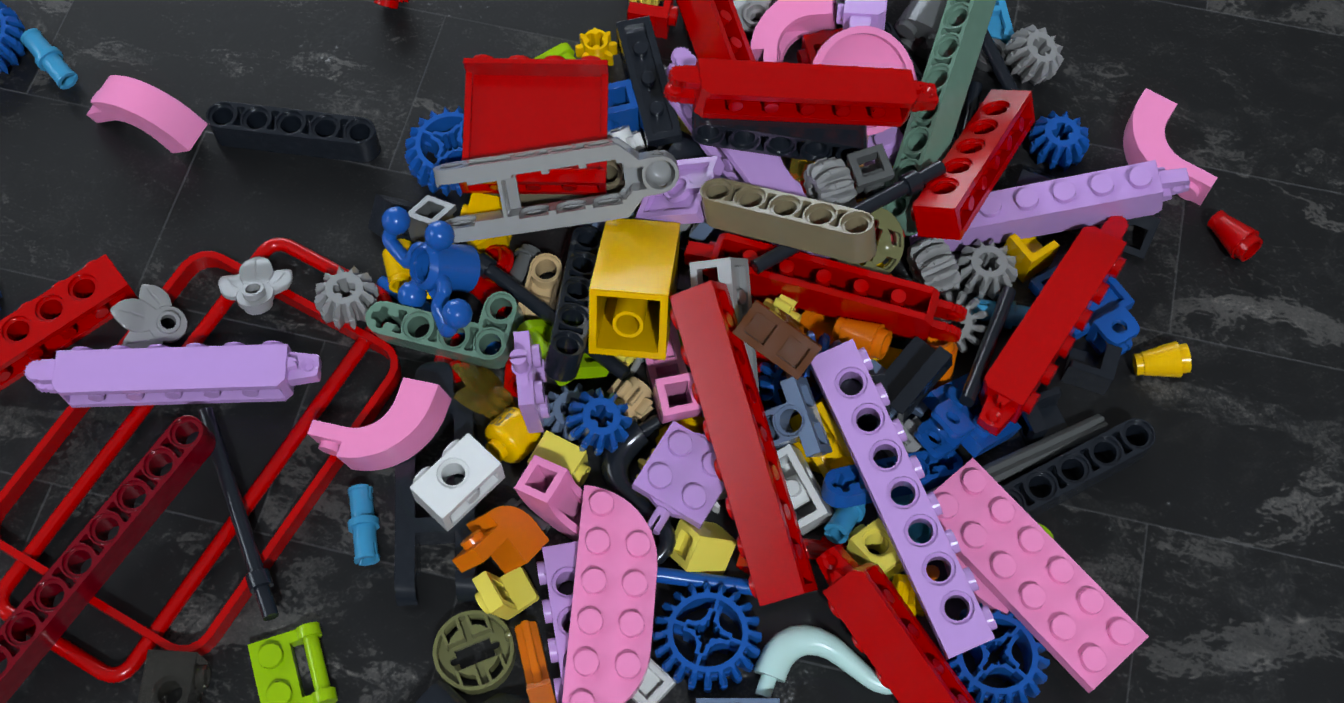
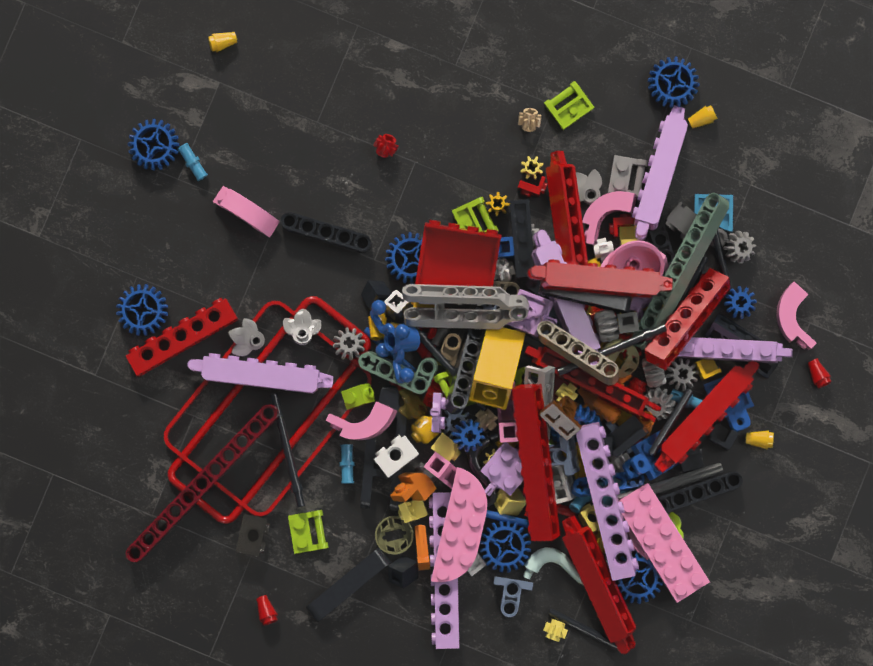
camera: 10 degrees right, 20 degrees up
(370, 387) = (358, 396): none -> lime bracket

